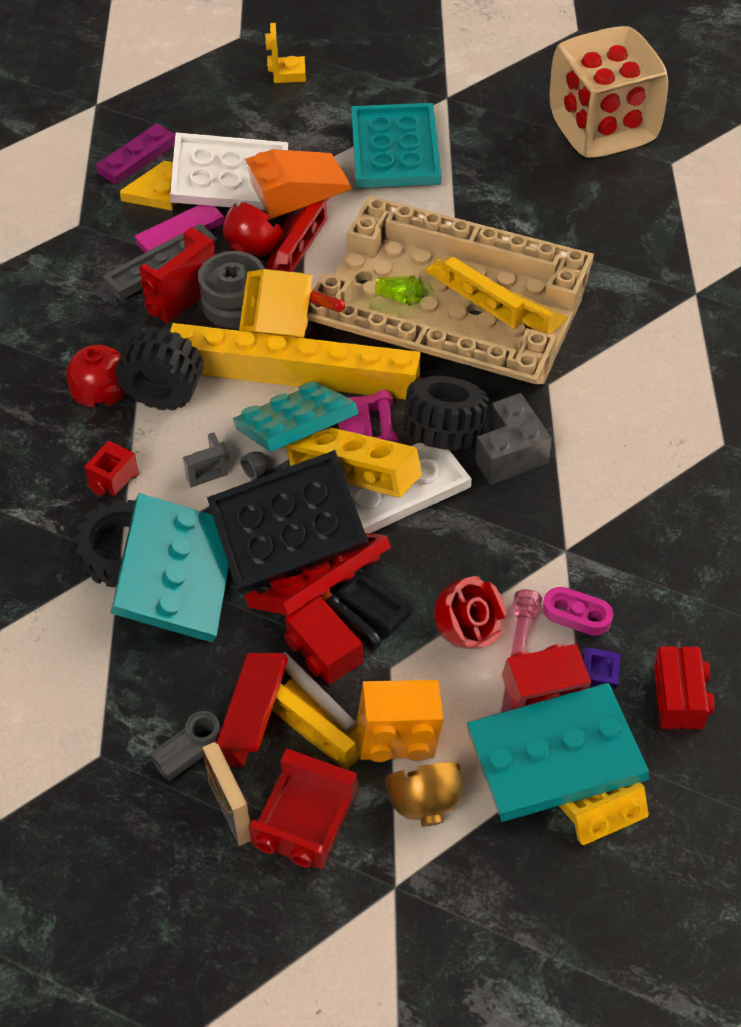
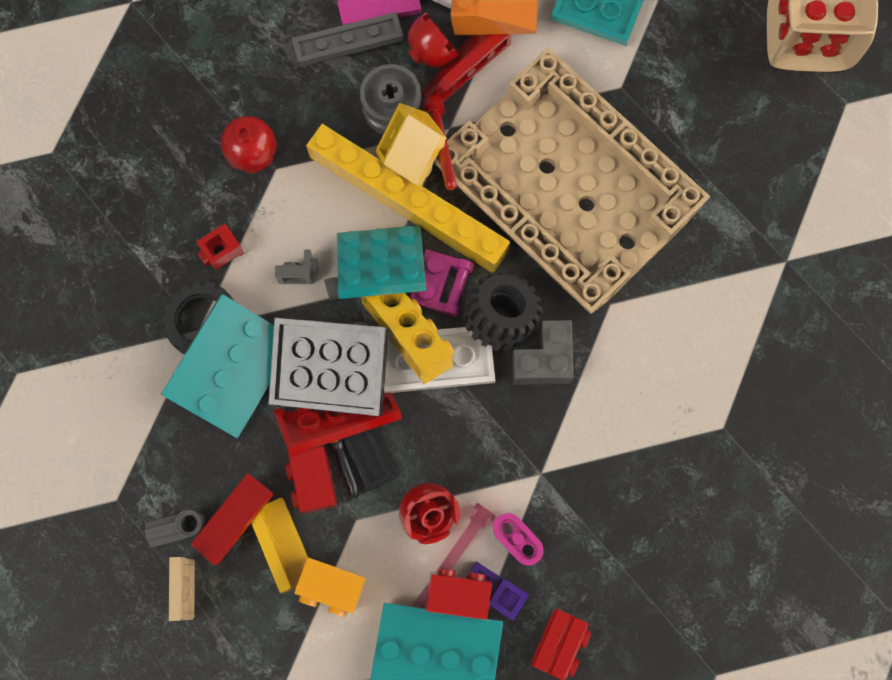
camera: 25 degrees right, 25 degrees up
(159, 368) = (291, 168): black tyre -> none
(176, 283) = (346, 78): red panel -> none
(305, 810) = (234, 619): red panel -> none
(325, 702) = (288, 522): light grey bar -> none
(400, 289) = (526, 163): clear neon green cone -> none
(426, 792) = (325, 648): pearl gold cylinder -> none
(494, 298) = (606, 204): yellow wedge -> none

